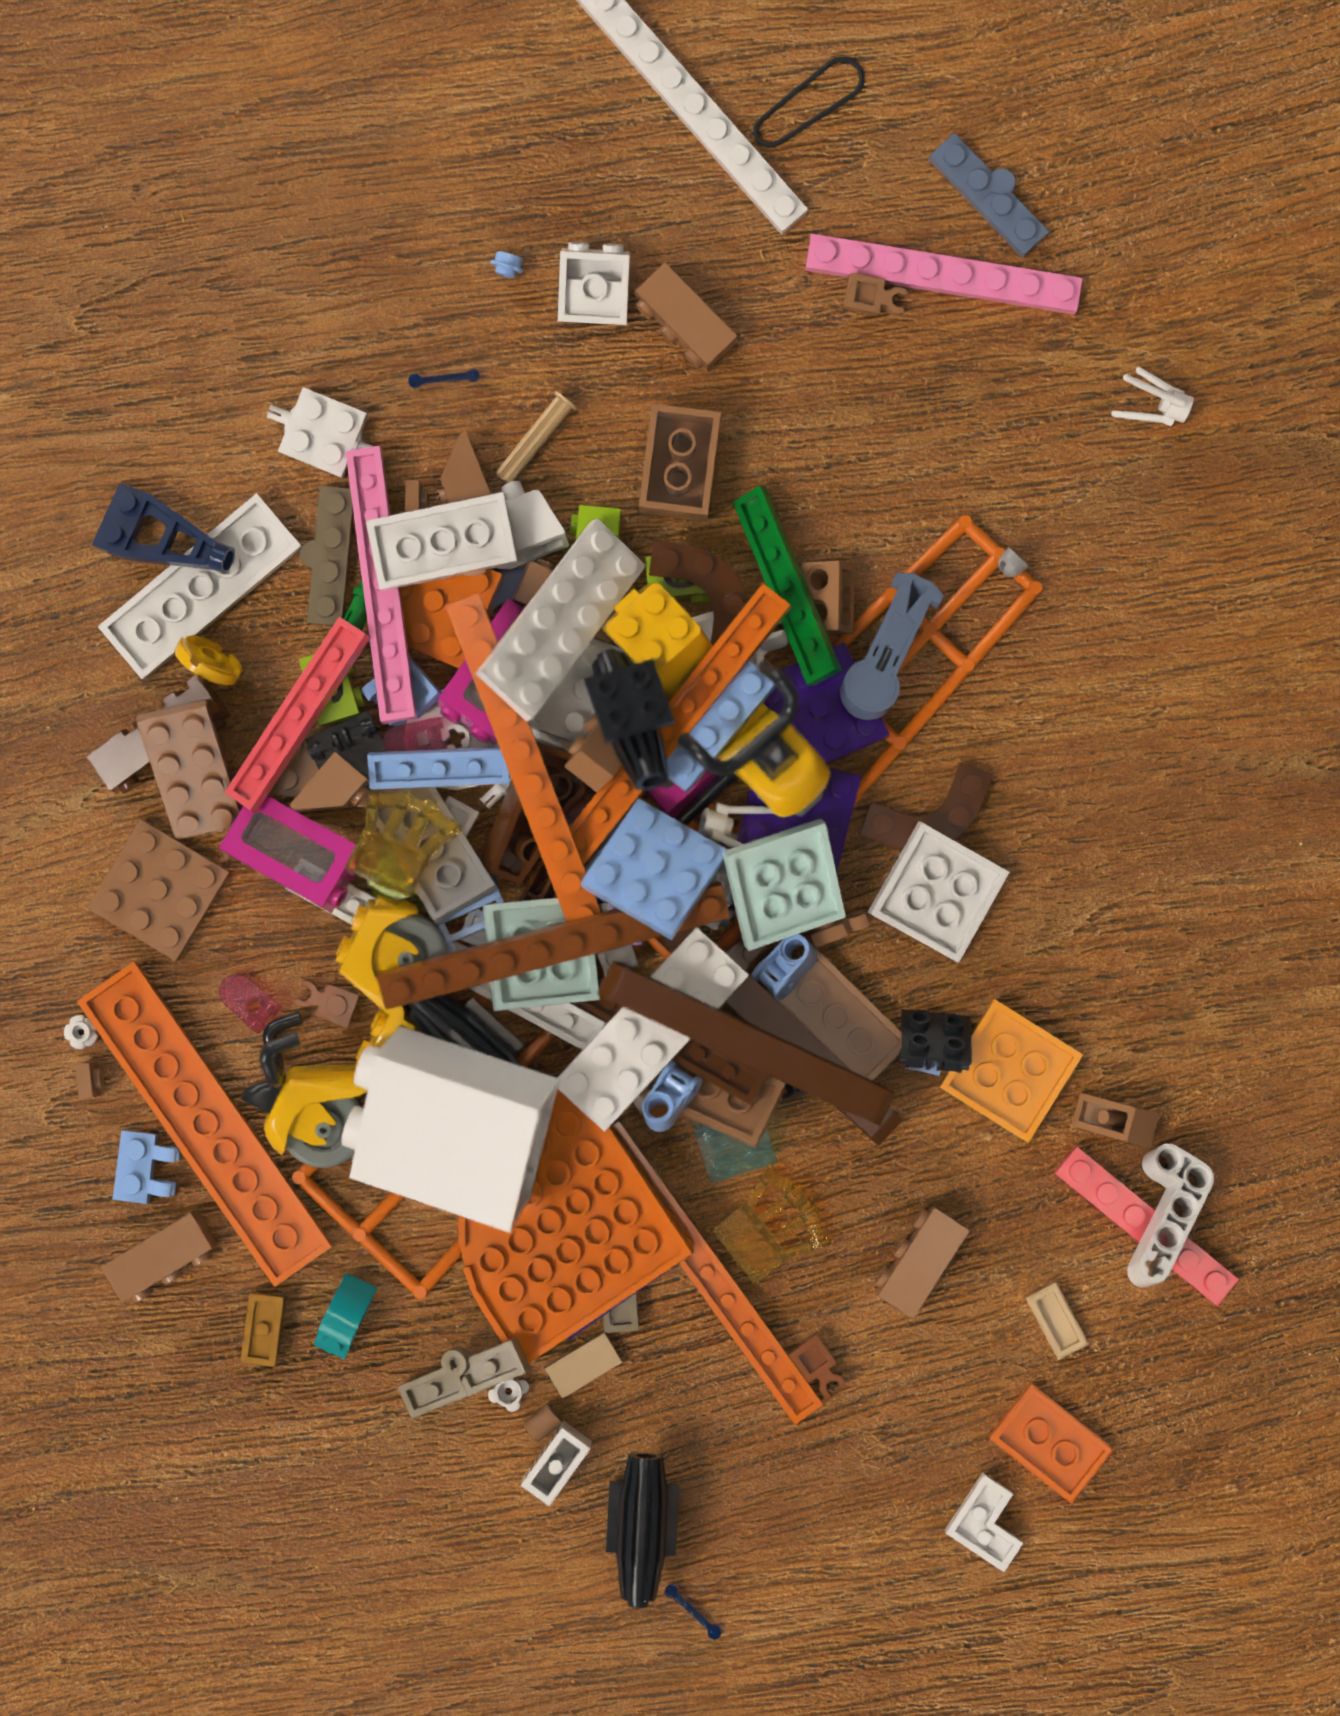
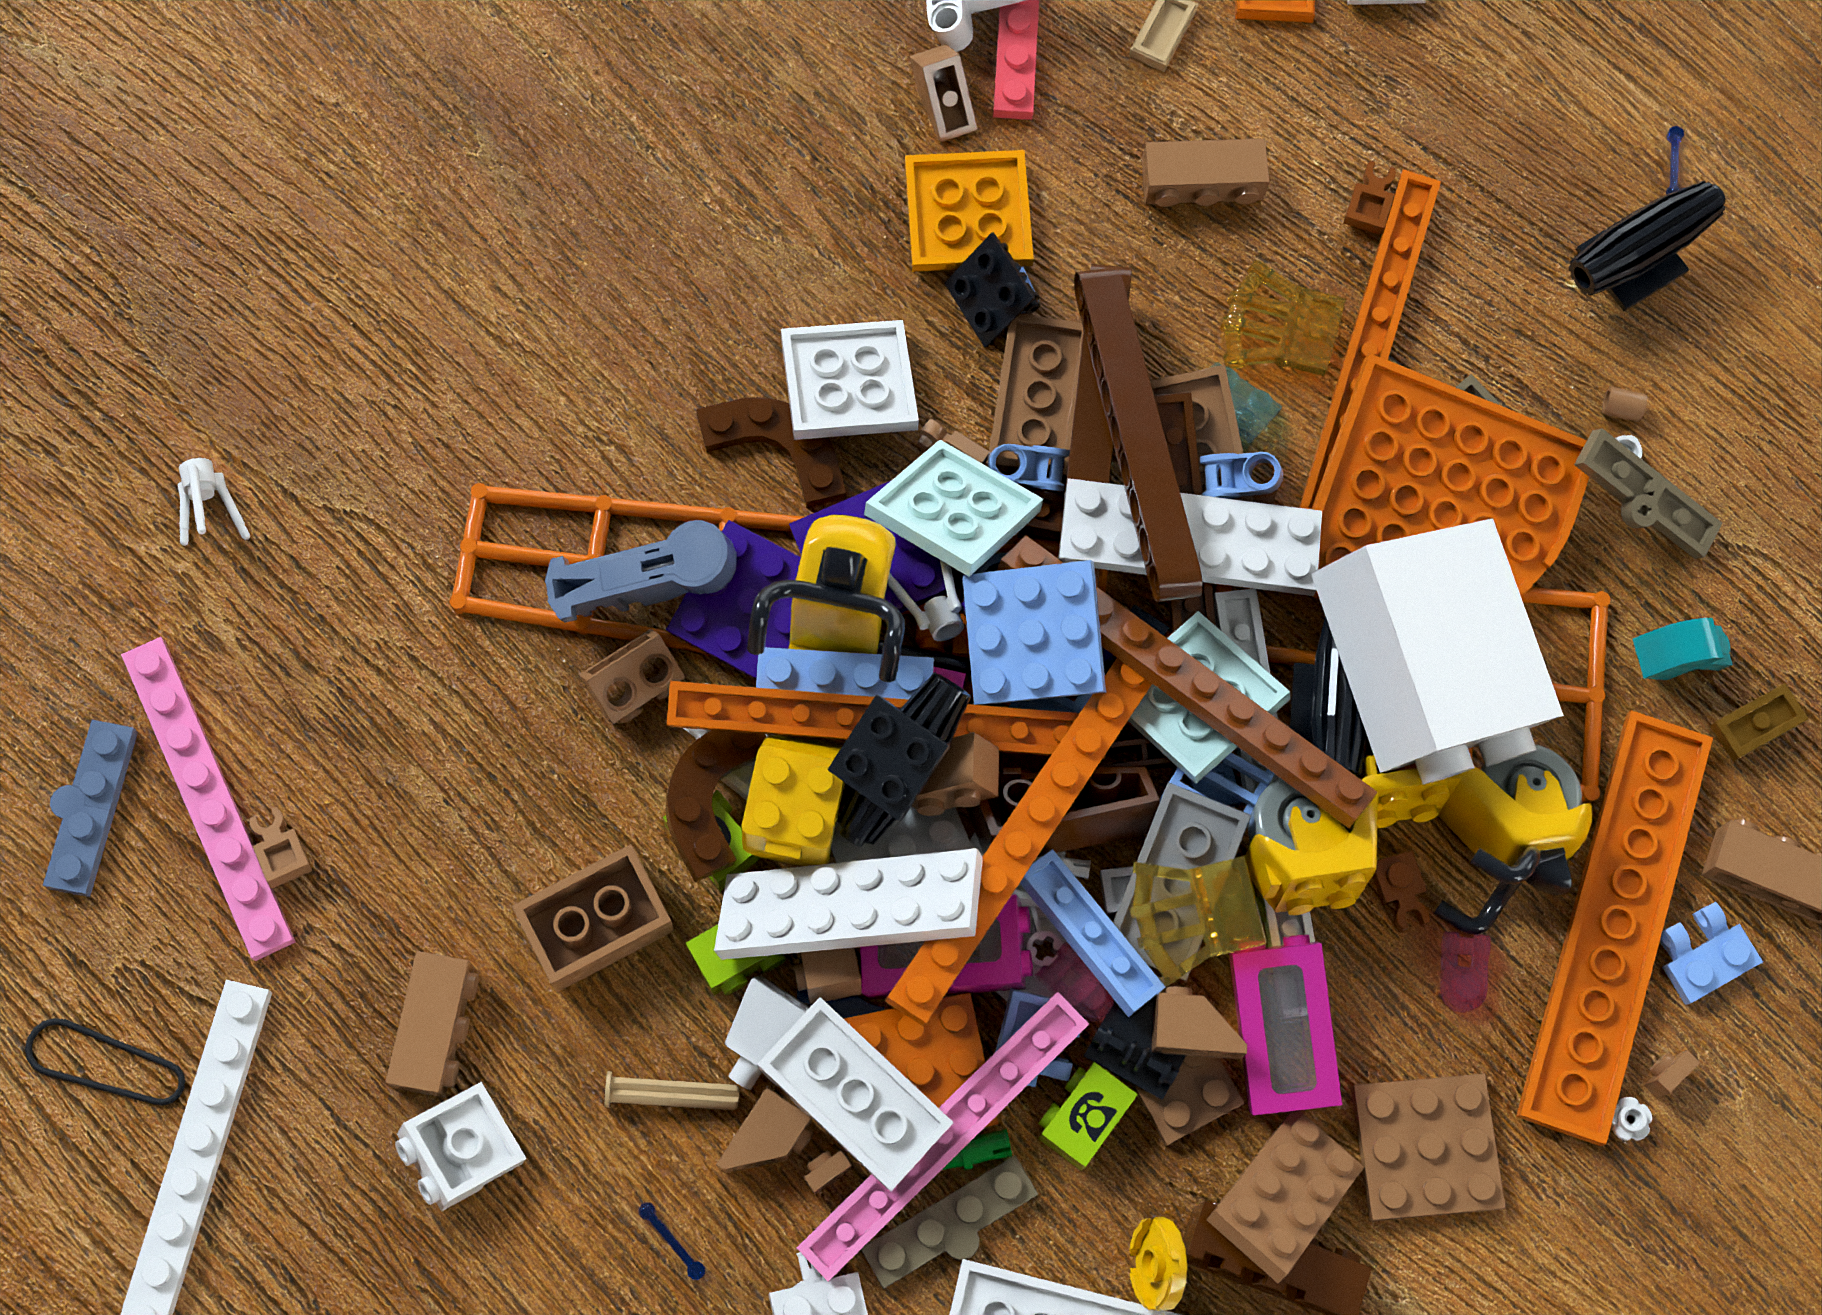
camera: 130 degrees left, 15 degrees down
(297, 714) = (1145, 1119): coral plate -> none
(507, 264) = (499, 1259): light blue plate -> none
(556, 1463) = (1652, 360): white brick -> none
(583, 1364) = (1543, 402): tan tile -> none
(785, 578) = (645, 722): green plate -> none
(1011, 564) = (467, 523): light grey hinge -> none

